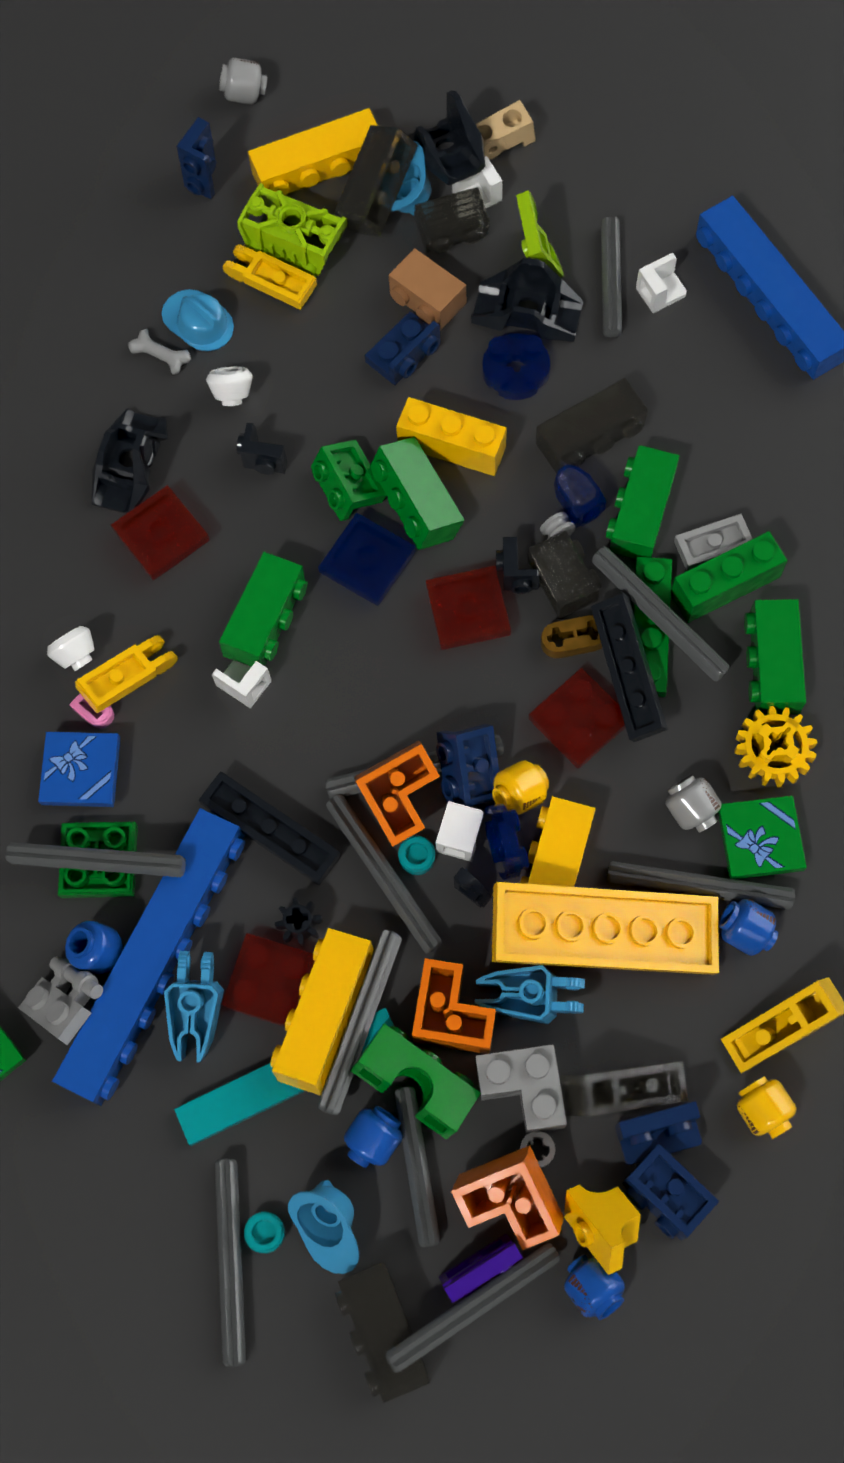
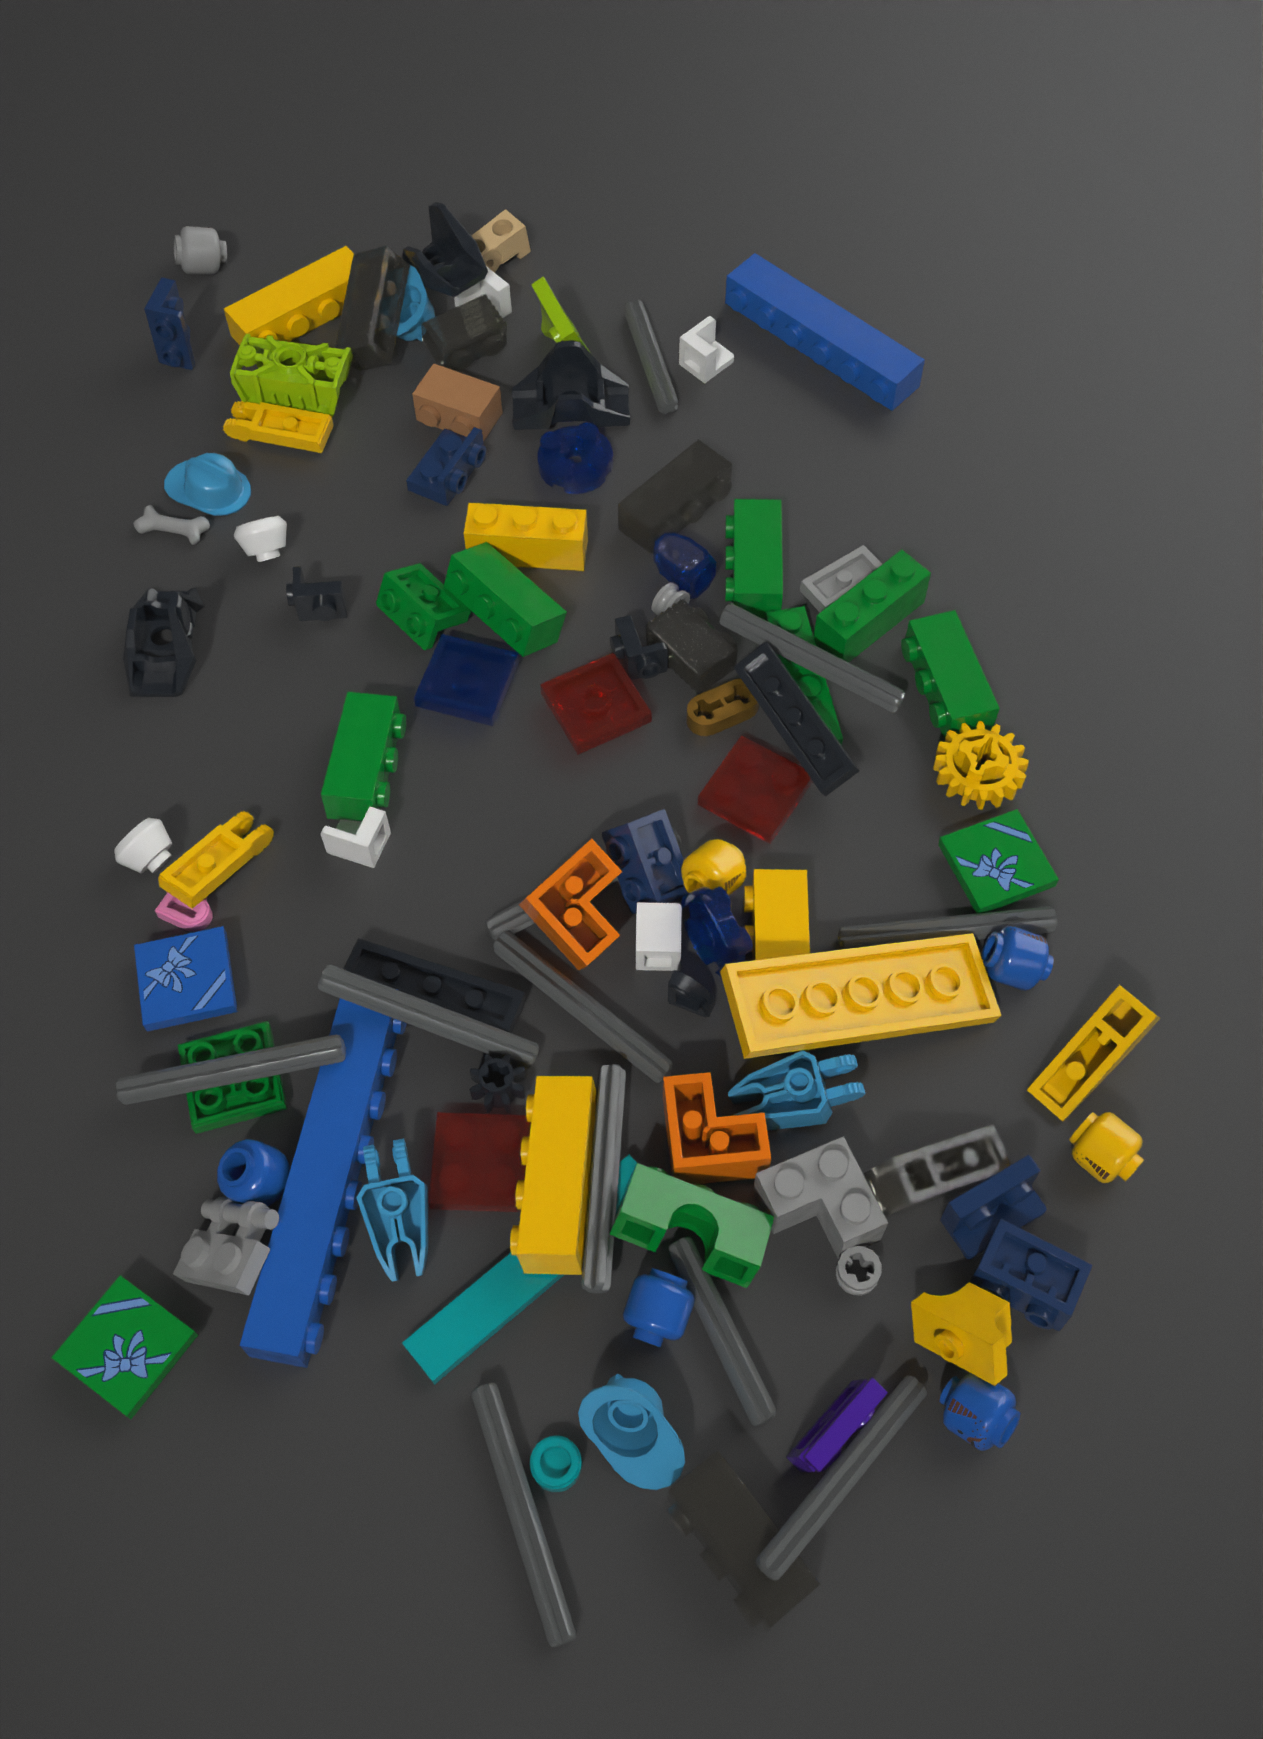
camera: 20 degrees left, 10 degrees down
(160, 532) = (219, 704): clear red plate -> none
(256, 855) = (427, 1016): none -> dark grey axle
(416, 855) = (615, 977): teal tile -> none
(514, 1188) = (844, 1315): orange brick -> none
(693, 803) = (912, 844): light grey head -> none

